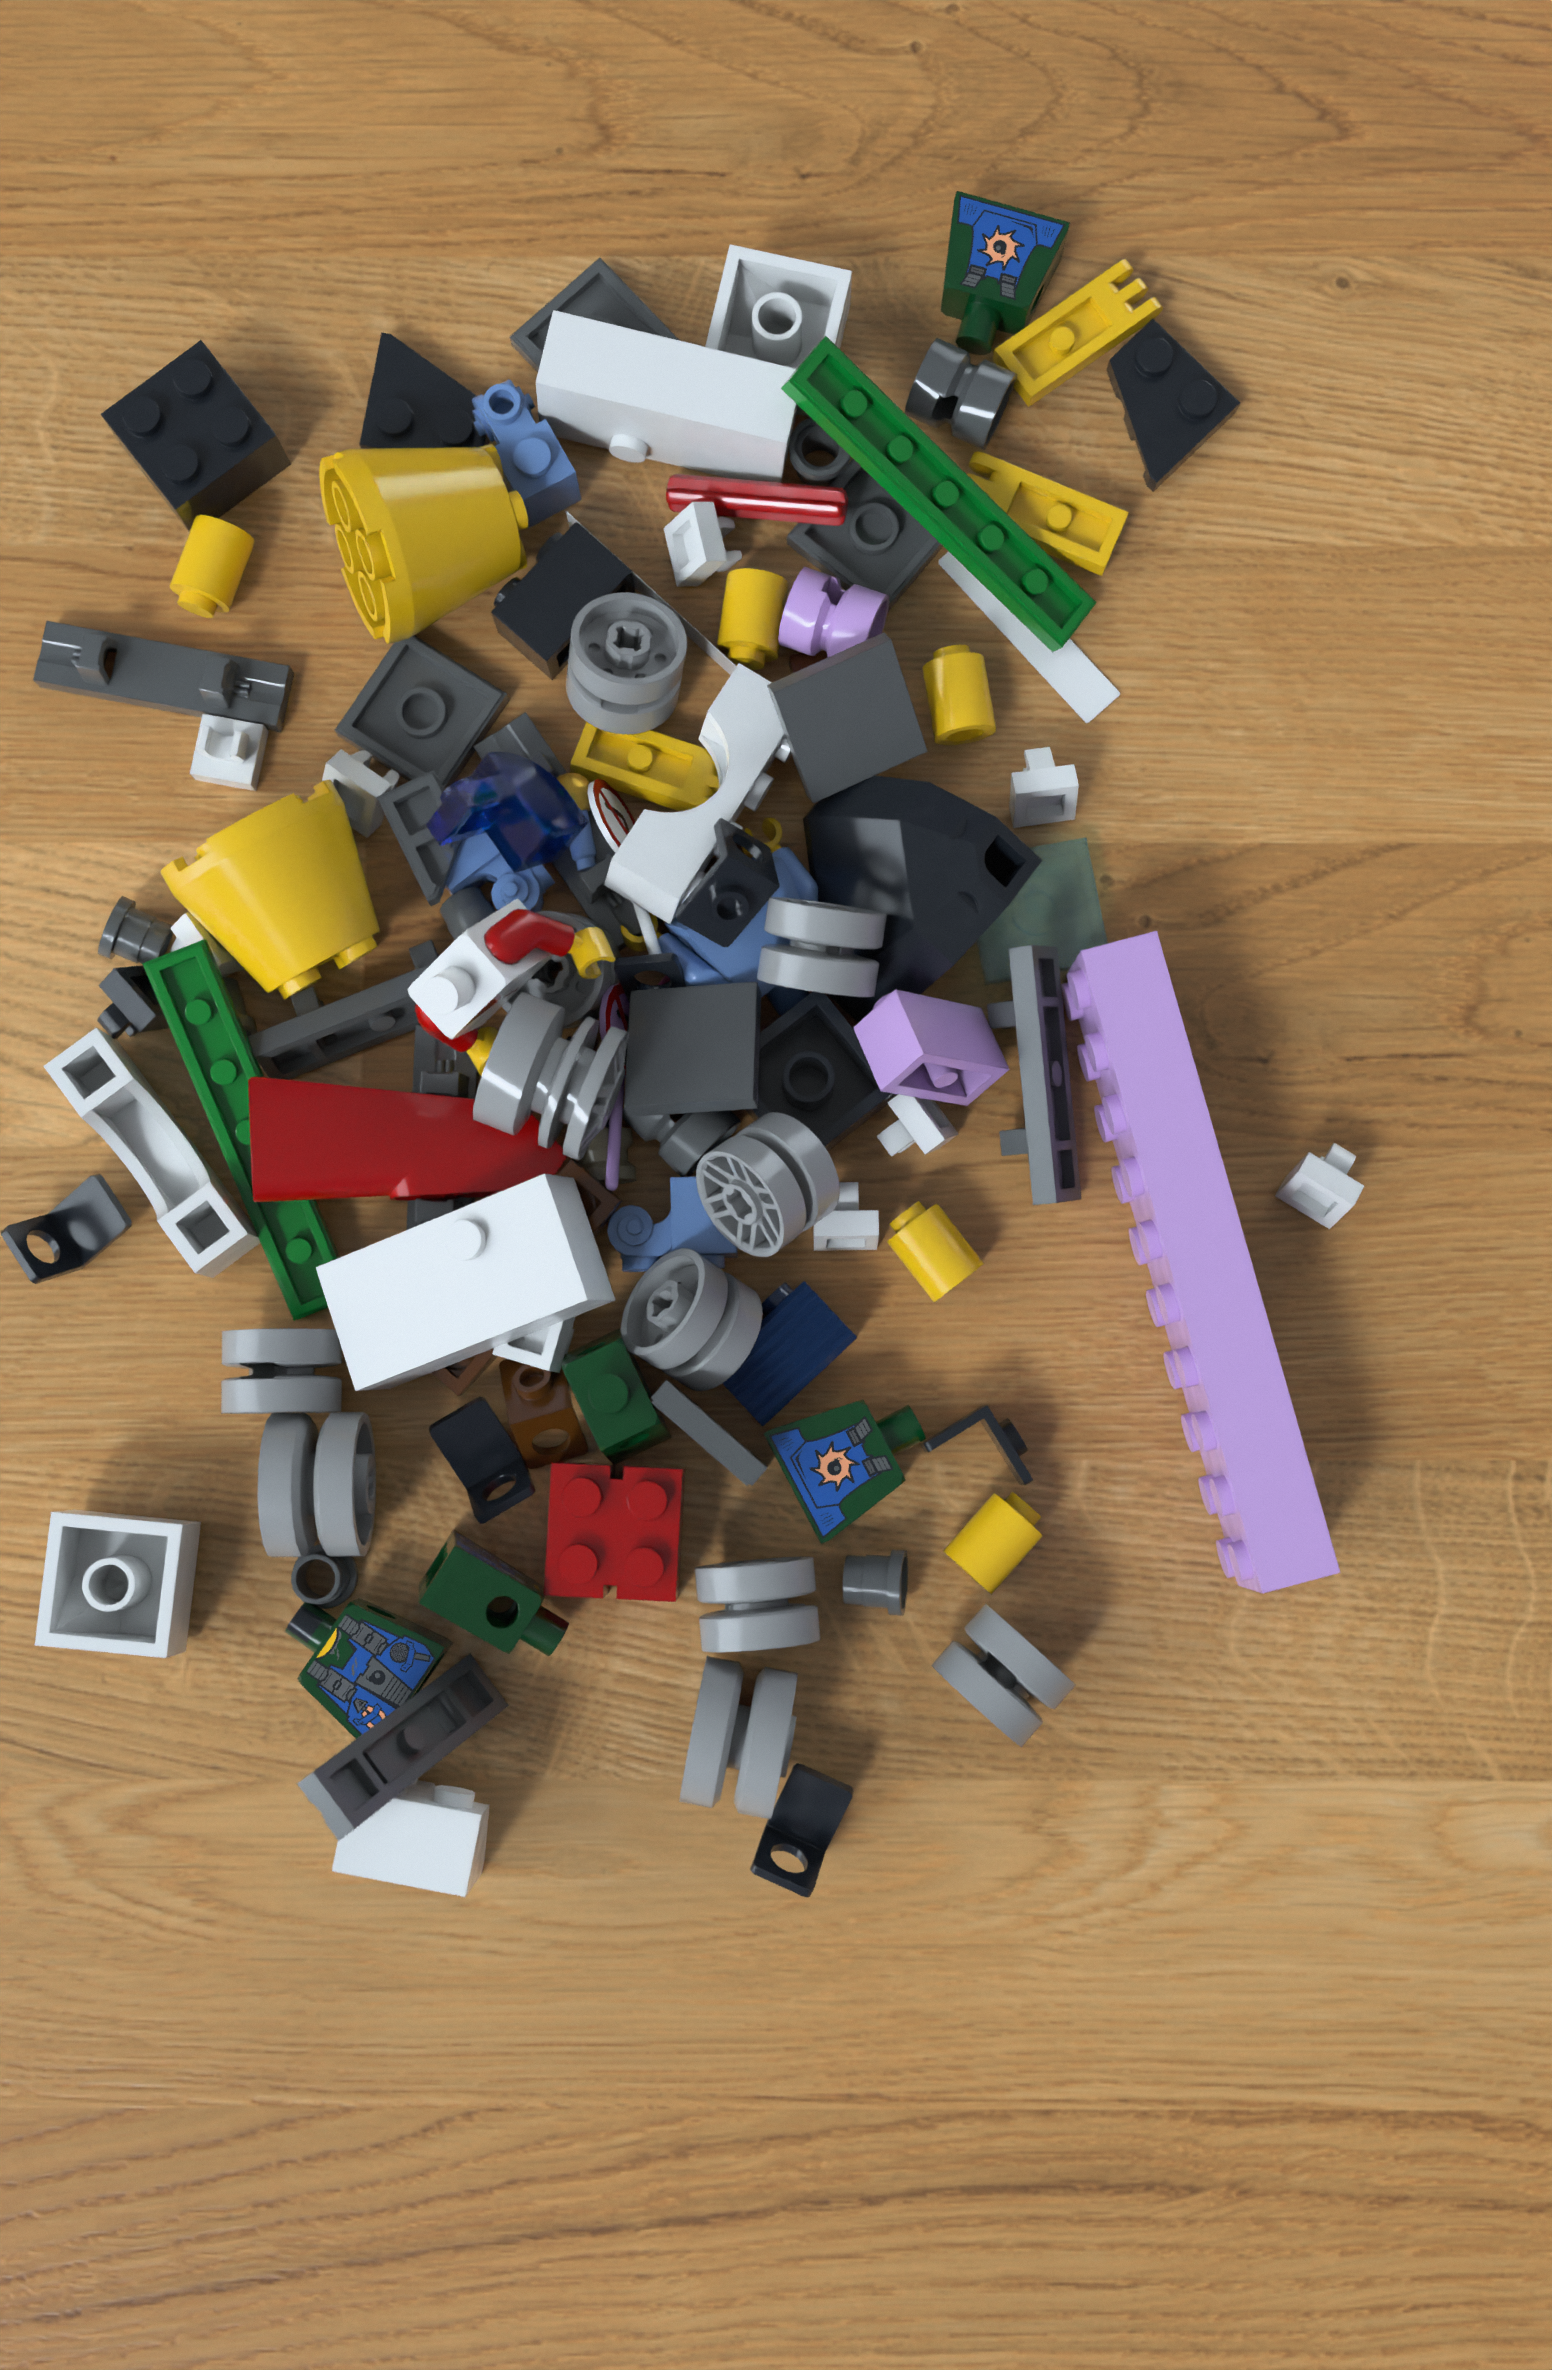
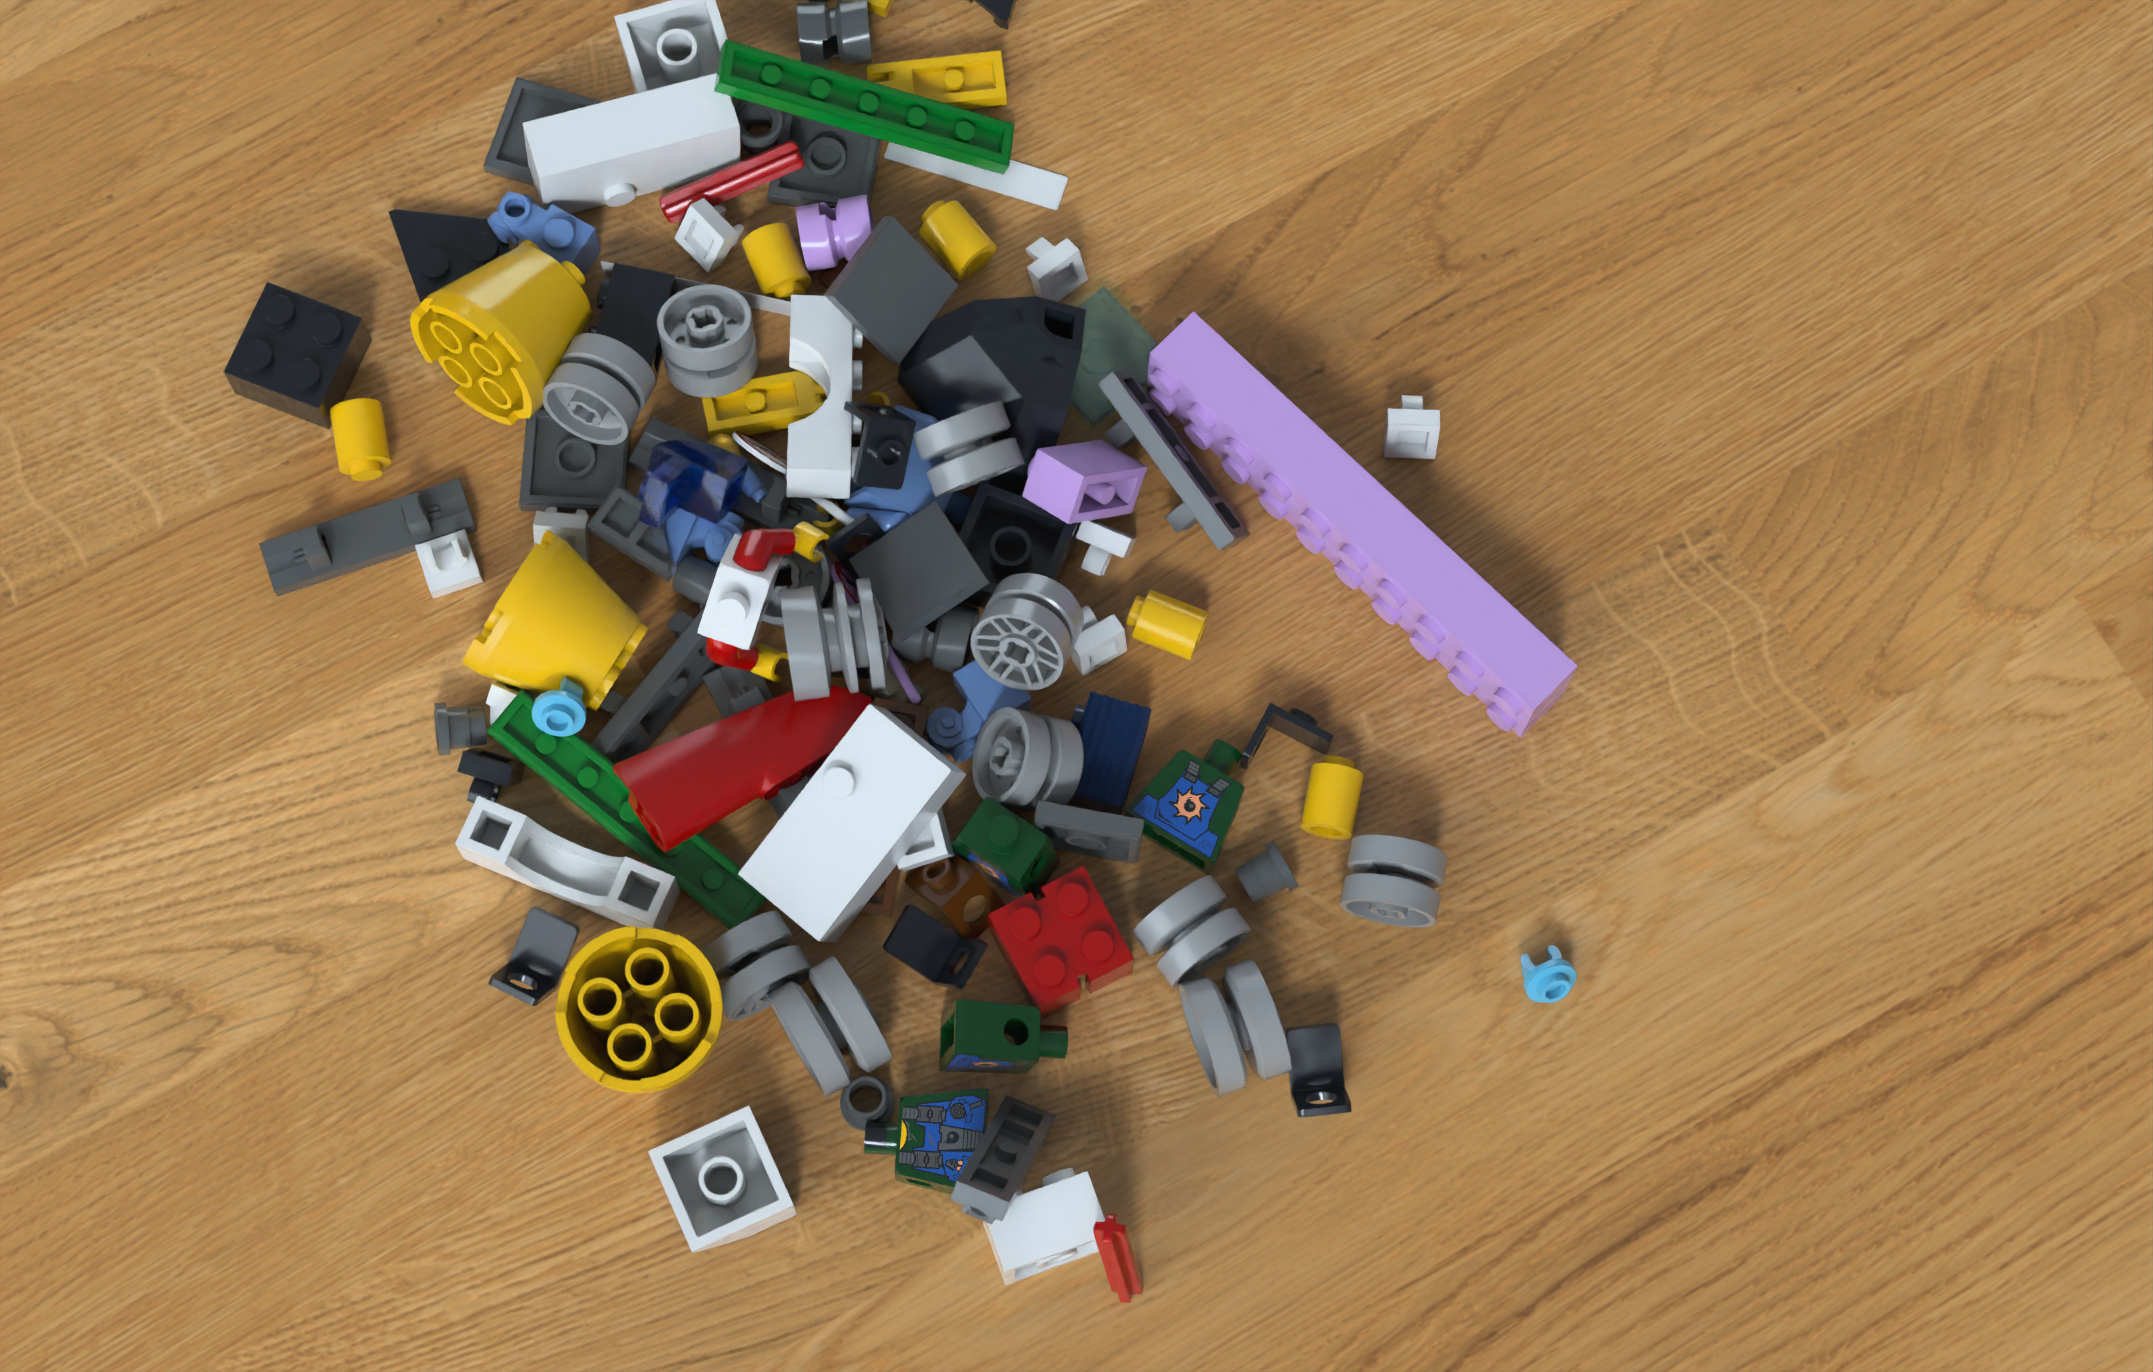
camera: 35 degrees left, 10 degrees down
(75, 1358) = (634, 977): none -> yellow cone
(226, 987) = (560, 710): none -> medium azure plate
(465, 1917) = (1118, 1257): none -> red axle
(476, 653) = (598, 389): none -> light grey wheel
(1108, 1874) = (1549, 980): none -> medium azure plate

